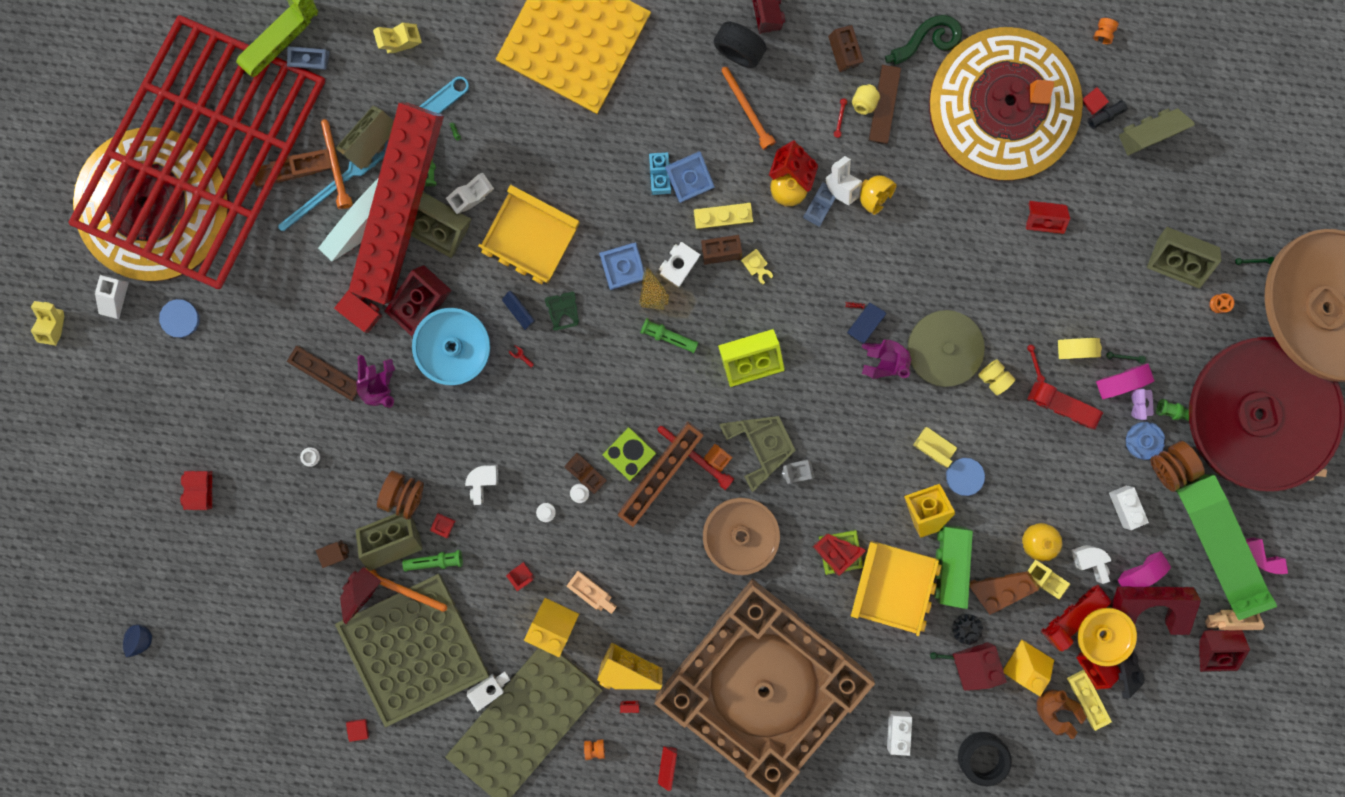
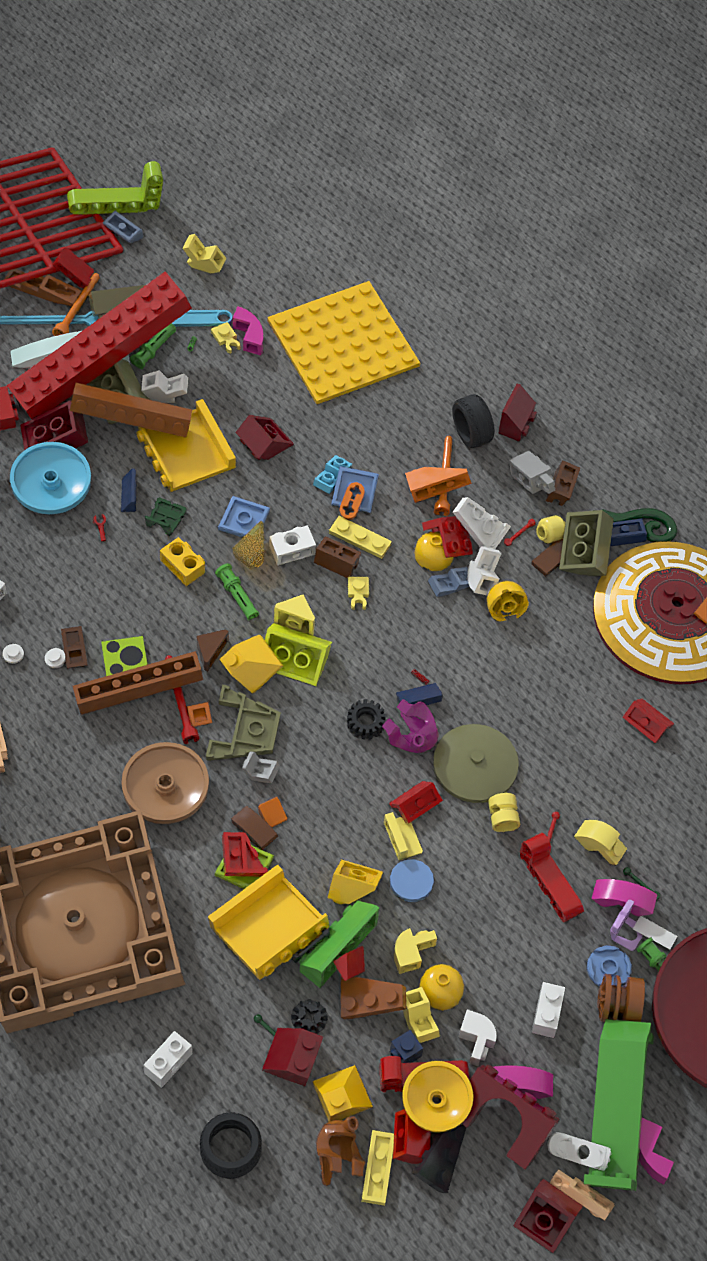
camera: 30 degrees right, 30 degrees down
(303, 132) = (73, 268): none -> red panel
(466, 243) = (131, 410): none -> dark orange brick
(475, 102) = (225, 335): none -> light yellow plate
(502, 89) = (247, 322): none -> dark pink brick
(583, 180) = (263, 437): none -> dark red slope
(607, 346) = (179, 563): none -> yellow brick
(686, 400) = (210, 646): none -> reddish brown slope
(692, 191) = (347, 499): none -> orange beam
(729, 393) = (251, 663): none -> yellow slope
(734, 329) = (295, 615): none -> light yellow slope
(744, 127) = (433, 481): none -> orange slope
(813, 140) = (482, 526): none -> white wing
(818, 58) = (532, 473): none -> light grey hinge
(827, 519) = (255, 827): none -> reddish brown slope
(831, 498) = (272, 812): none -> orange slope
(854, 373) = (365, 708): none -> black tyre
(904, 95) = (586, 543): none -> olive slope
(922, 58) = (628, 532): none -> dark blue slope
(925, 413) = (417, 801): none -> red panel
(943, 571) = (296, 957): none -> black hinge
(976, 583) = (351, 963): none -> red slope
(1000, 533) = (408, 947): none -> light yellow brick
(1052, 608) = (406, 1047): none -> dark blue brick
(1161, 389) = (657, 933): none -> white sticker
(1233, 592) = (568, 1148): none -> white piece

